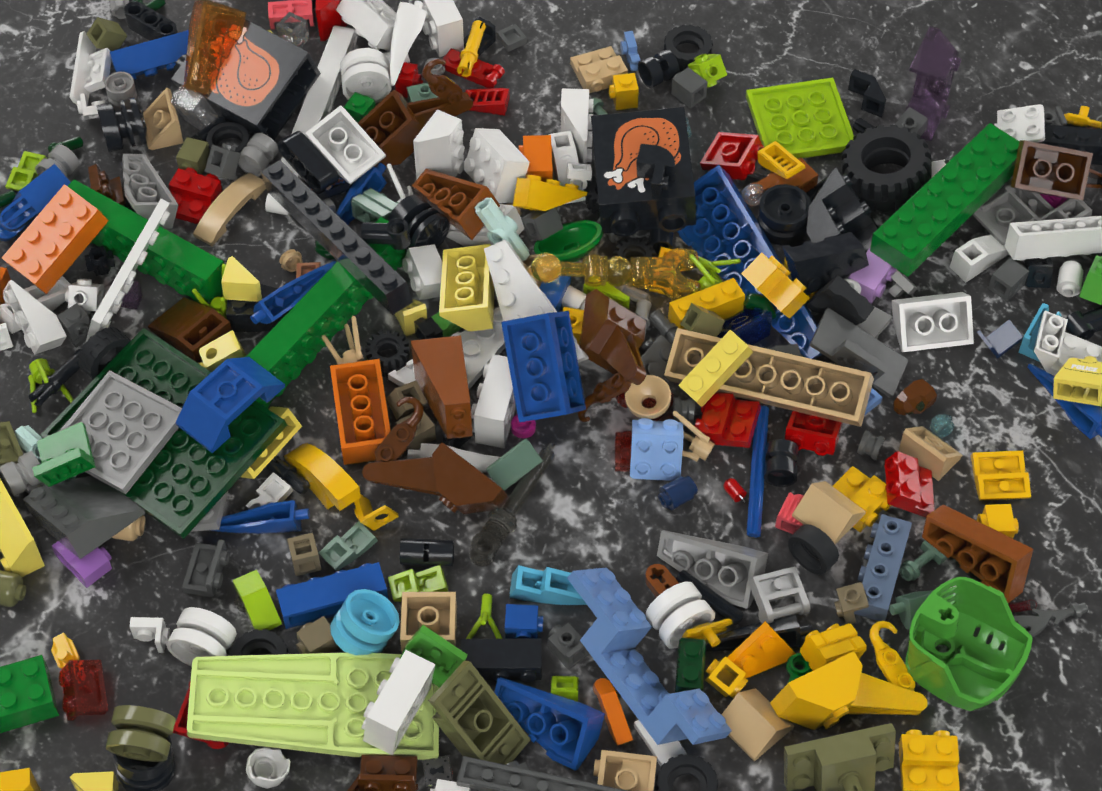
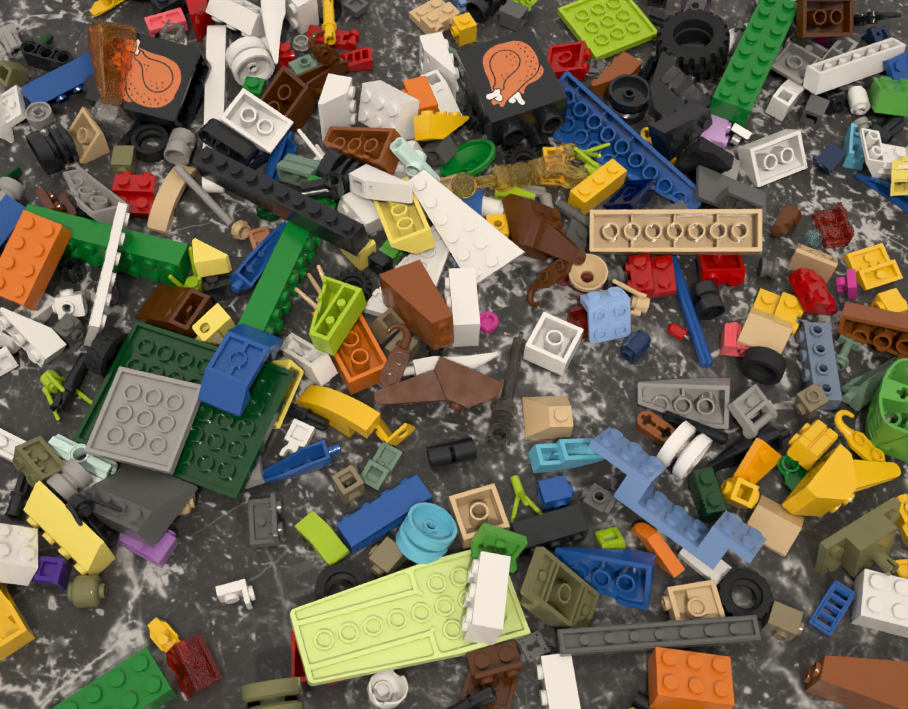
camera: 20 degrees left, 5 degrees up
(24, 500) = (81, 506): none -> black plant
(64, 455) = (104, 454): bracket -> none
(88, 112) = (18, 143): white bracket -> none
(200, 635) = (286, 587): white wheel -> none
(223, 161) = (153, 158): dark grey brick -> none
(264, 213) = (204, 195): none -> light grey bar
(312, 415) = (315, 363): none -> white slope
(350, 373) = (336, 314): none -> lime wedge
(424, 581) = (453, 483): lime slope -> none
(450, 245) = (379, 185): none -> white slope
(514, 464) = (499, 357): sand green panel -> none
(543, 366) = (497, 269): blue brick -> none
(548, 543) = (547, 417): none -> tan slope
(579, 171) = (456, 100): white tile -> none
(583, 465) = (553, 343): none -> white brick
(656, 164) = (530, 78): black brick -> none
(702, 321) = (603, 199): olive brick -> none
(708, 631) = (708, 458): yellow piece -> none
(715, 368) = (635, 235): light yellow brick -> none
(752, 194) = (599, 88): clear plate -> none
(758, 301) = (637, 173): dark green arm -> none
(773, 282) = (647, 154): yellow brick -> none
(775, 150) = (604, 56): yellow slope -> none
(960, 487) = (848, 284): none -> dark pink tile
(971, 419) = (834, 226): none -> clear red bracket
(1063, 306) = (861, 123): none -> light grey plate

